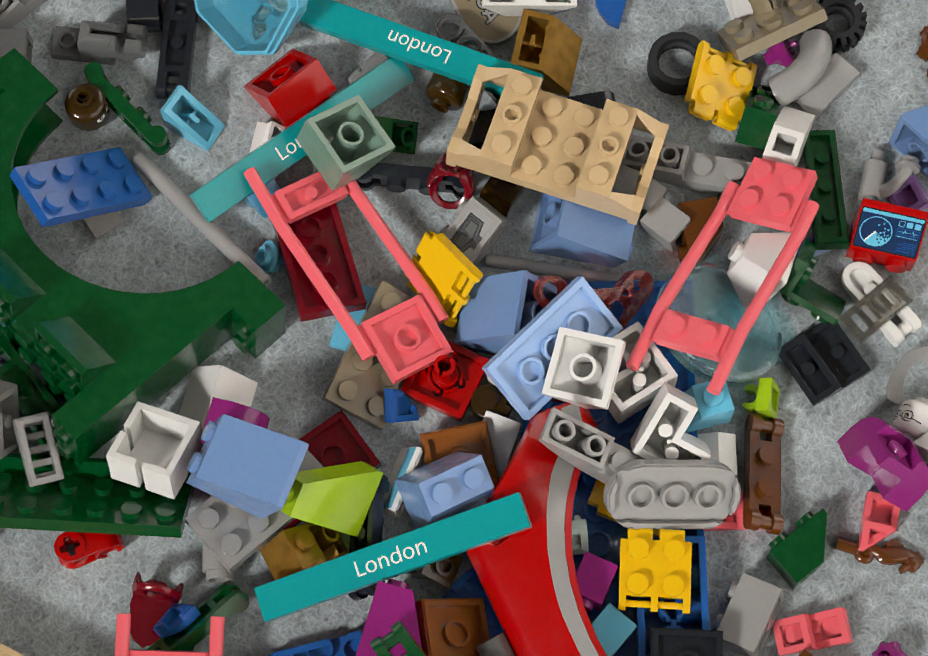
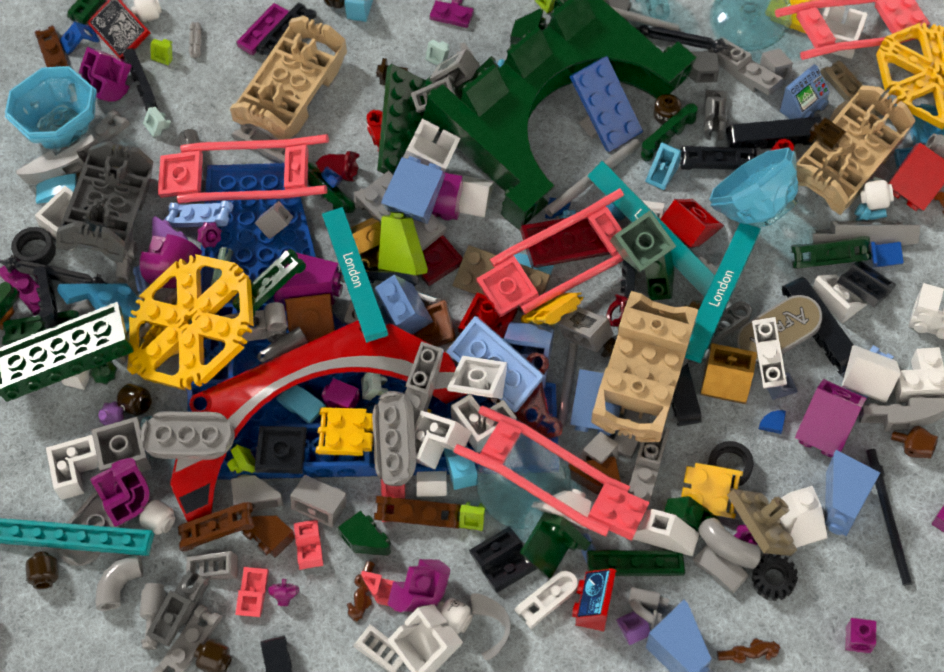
camera: 90 degrees right, 10 degrees down
(398, 407) = (465, 291): blue tile -> none
(898, 293) = (546, 603): clear smoke slope -> none

